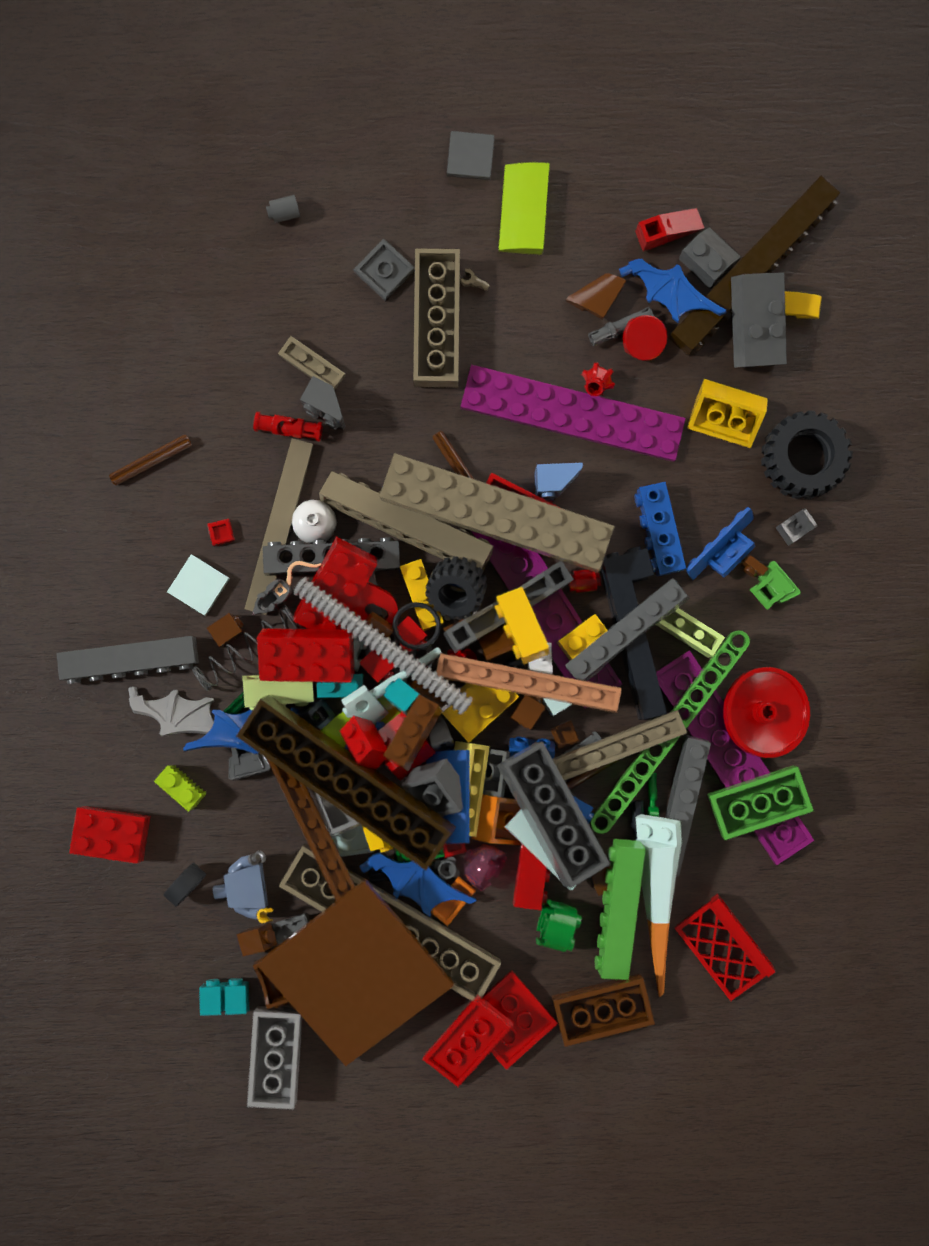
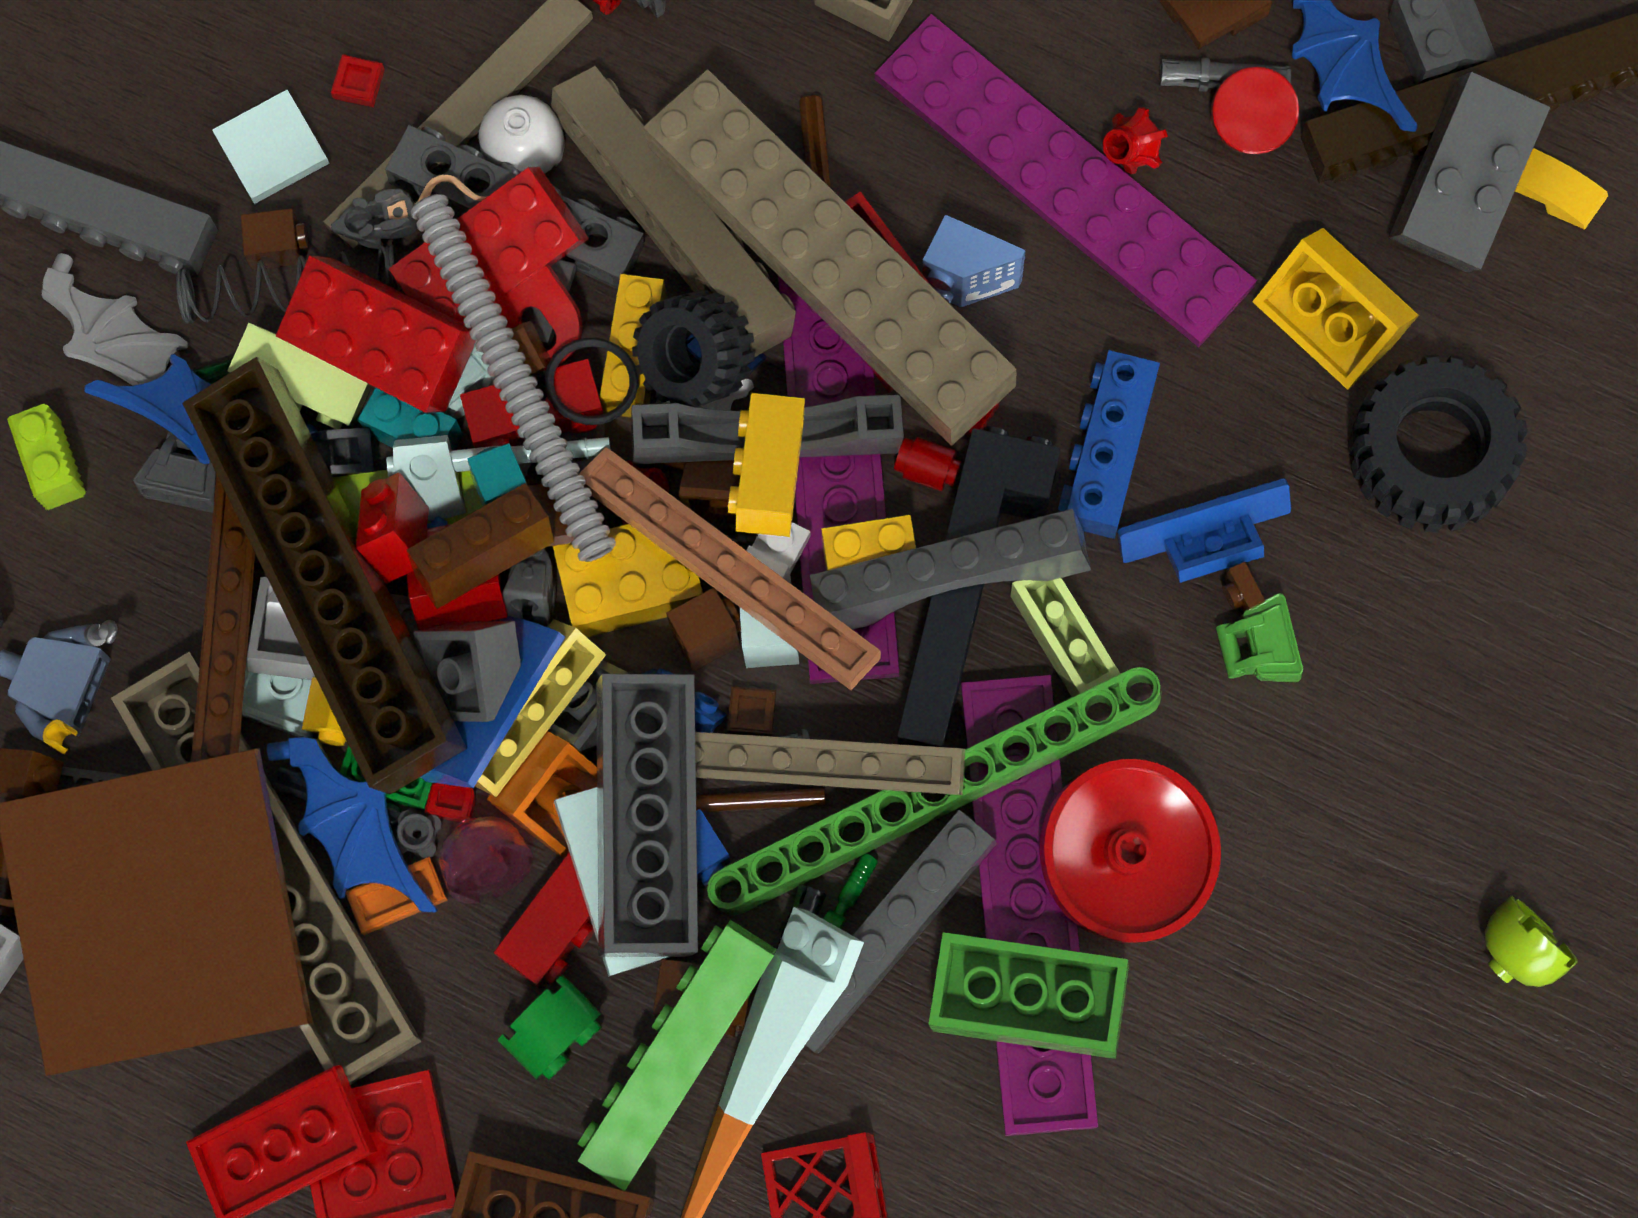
camera: 40 degrees right, 10 degrees down
(796, 526) = (1356, 559): flat silver bracket -> none

